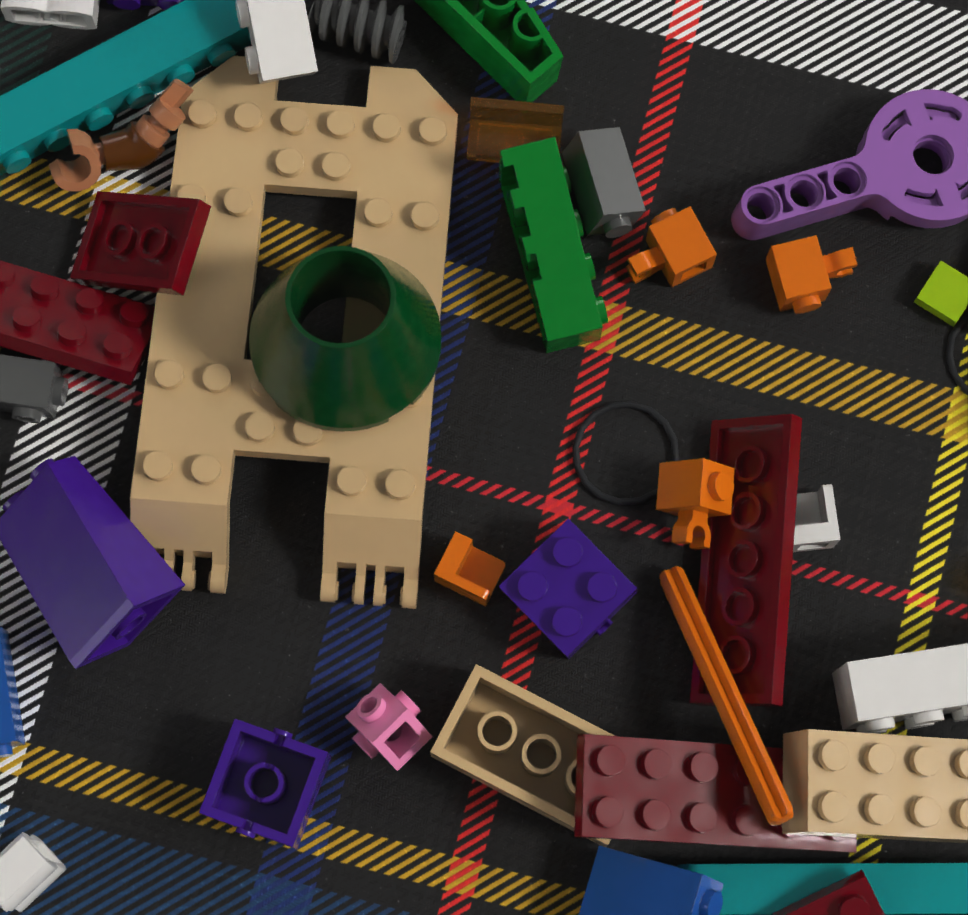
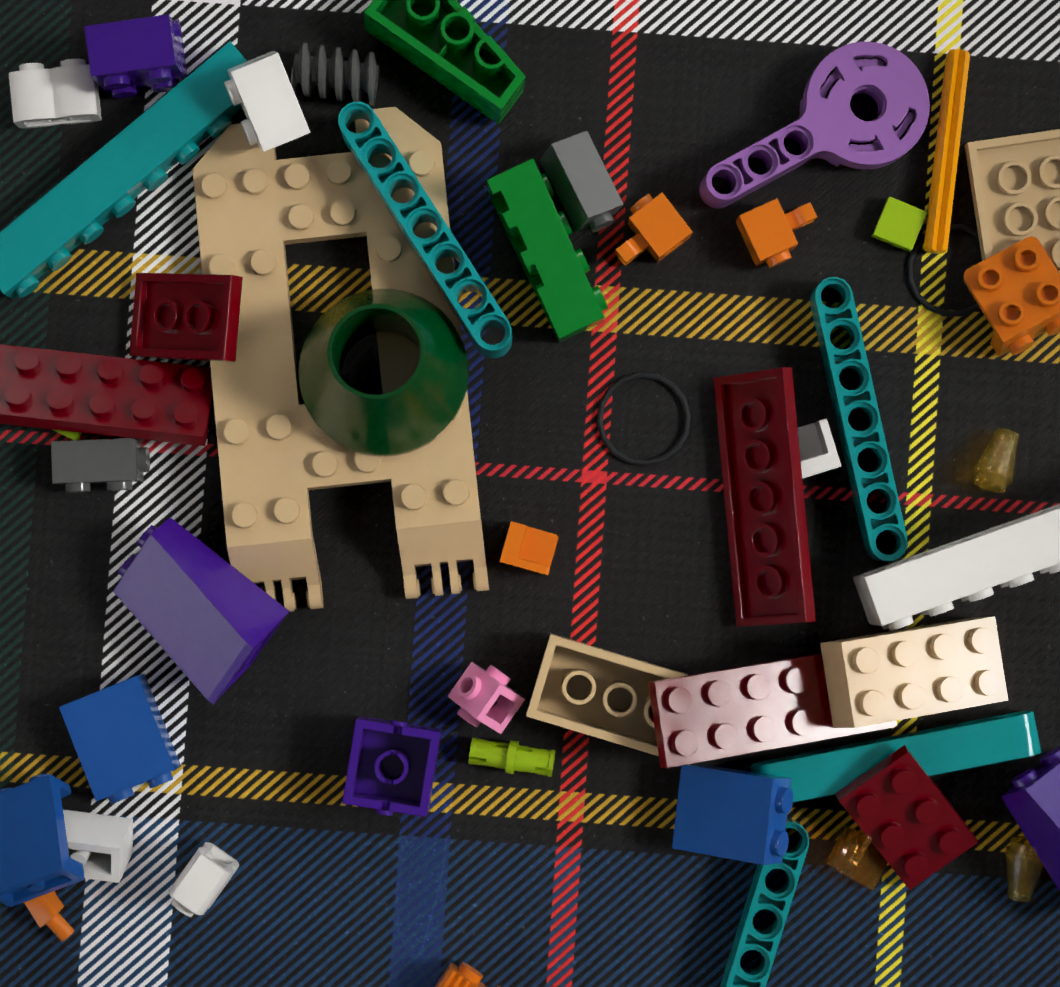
camera: 10 degrees left, 10 degrees up
(124, 149) = (150, 231): nougat piece -> none
(405, 803) = (511, 757): none -> lime pin
(422, 216) = (417, 211): none -> teal beam
(509, 123) = (492, 149): clear orange panel -> none
(568, 589) = (616, 552): dark purple brick -> none
(693, 493) = (710, 448): orange brick -> none
(726, 697) = (766, 620): orange axle -> none
(873, 473) = (864, 399): none -> teal beam

